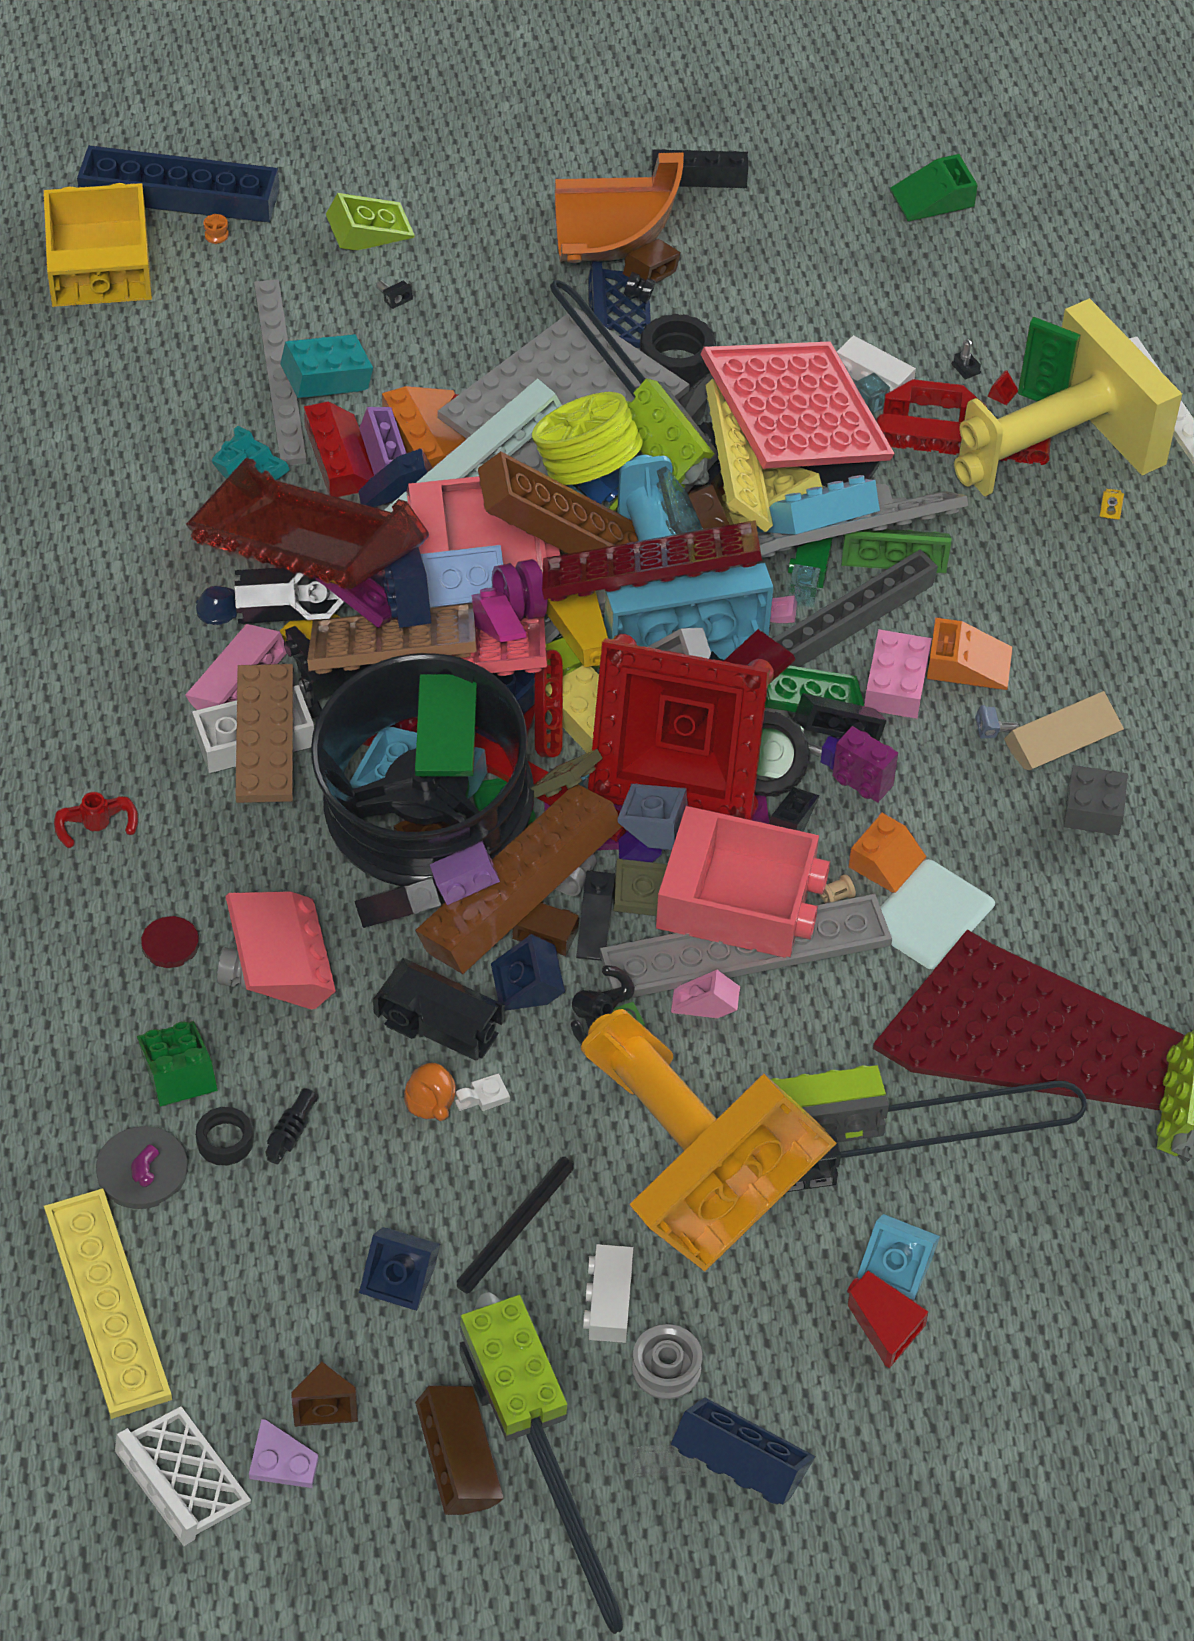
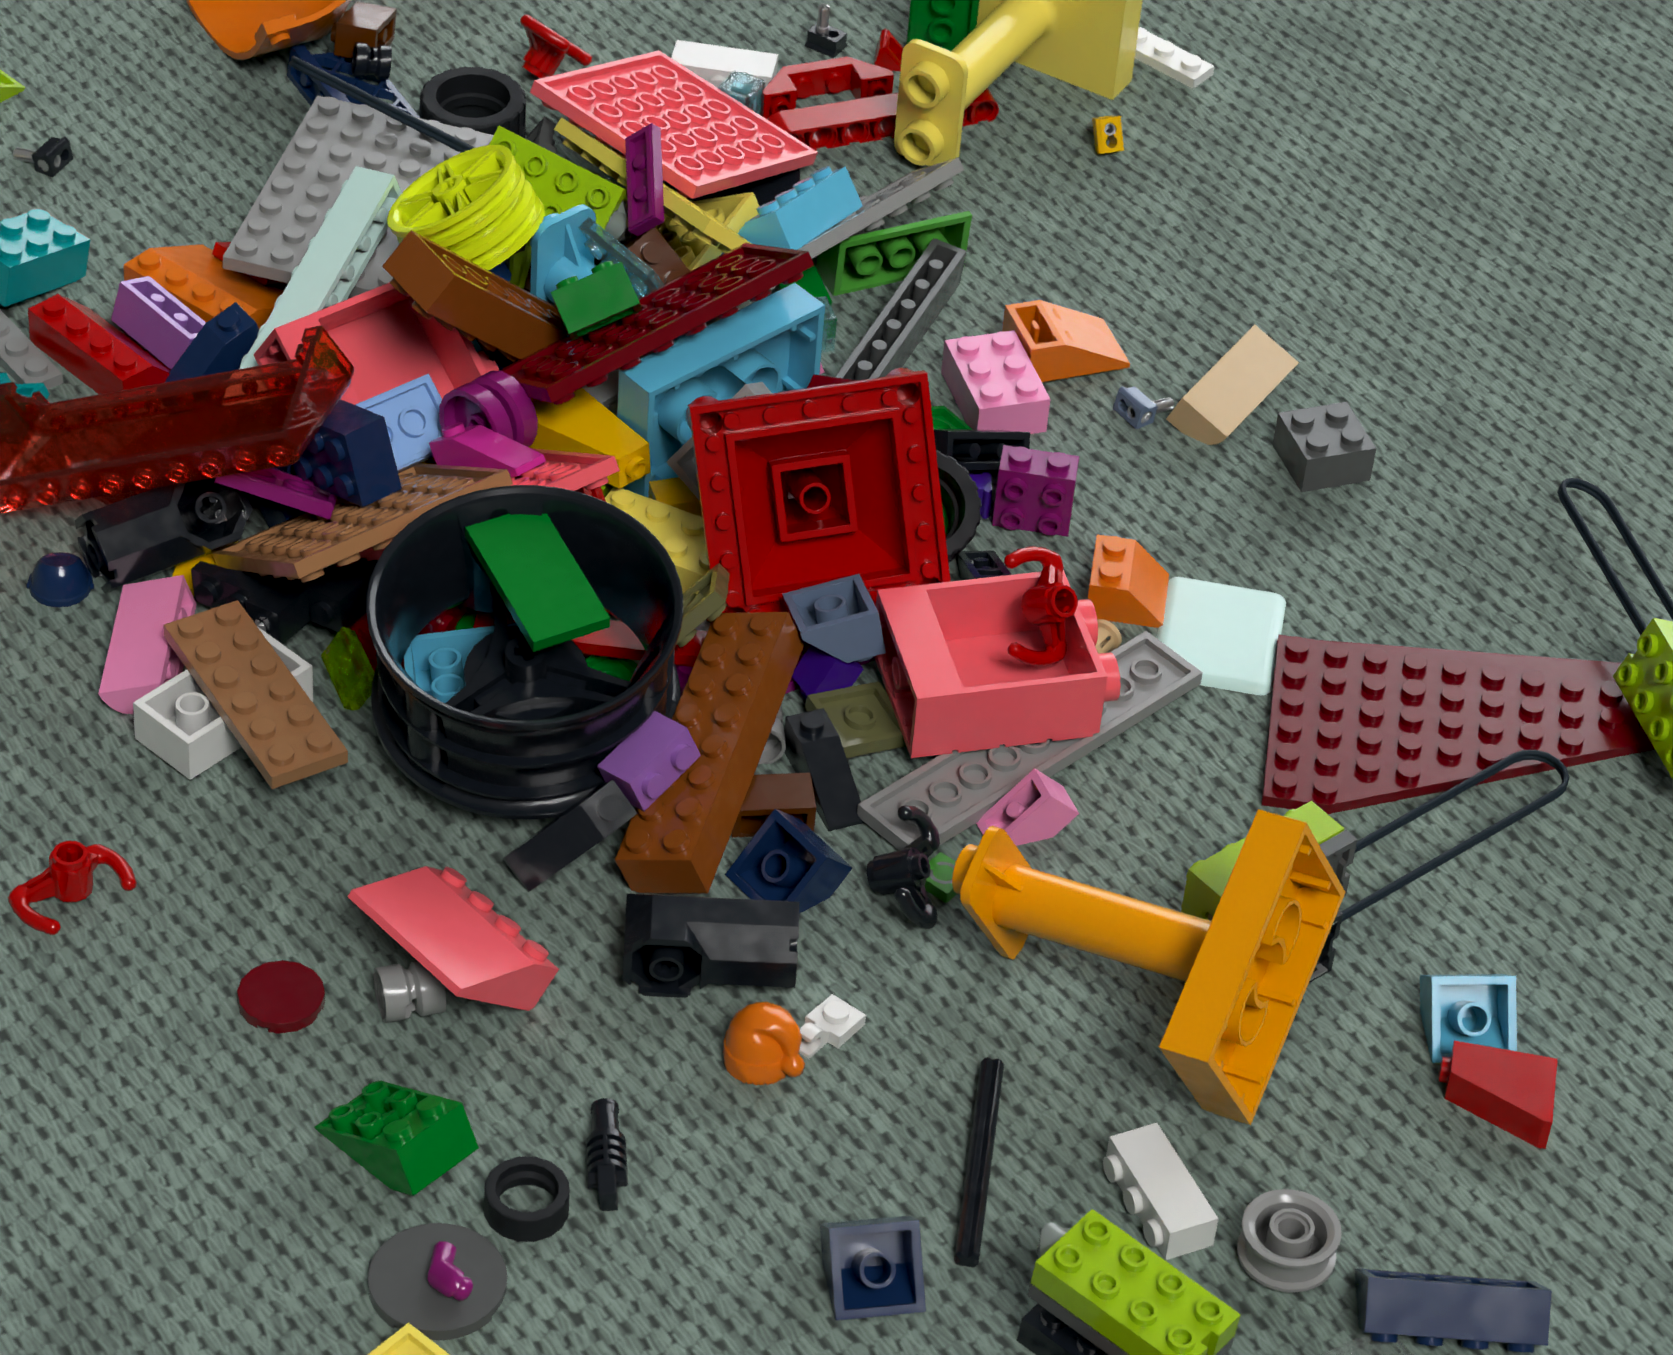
camera: 30 degrees left, 10 degrees down
(626, 532) = (595, 299): none -> green slope
(720, 449) = (644, 179): none -> magenta tile
(764, 314) = (548, 49): none -> red piece
(797, 856) = (1044, 605): none -> red piece

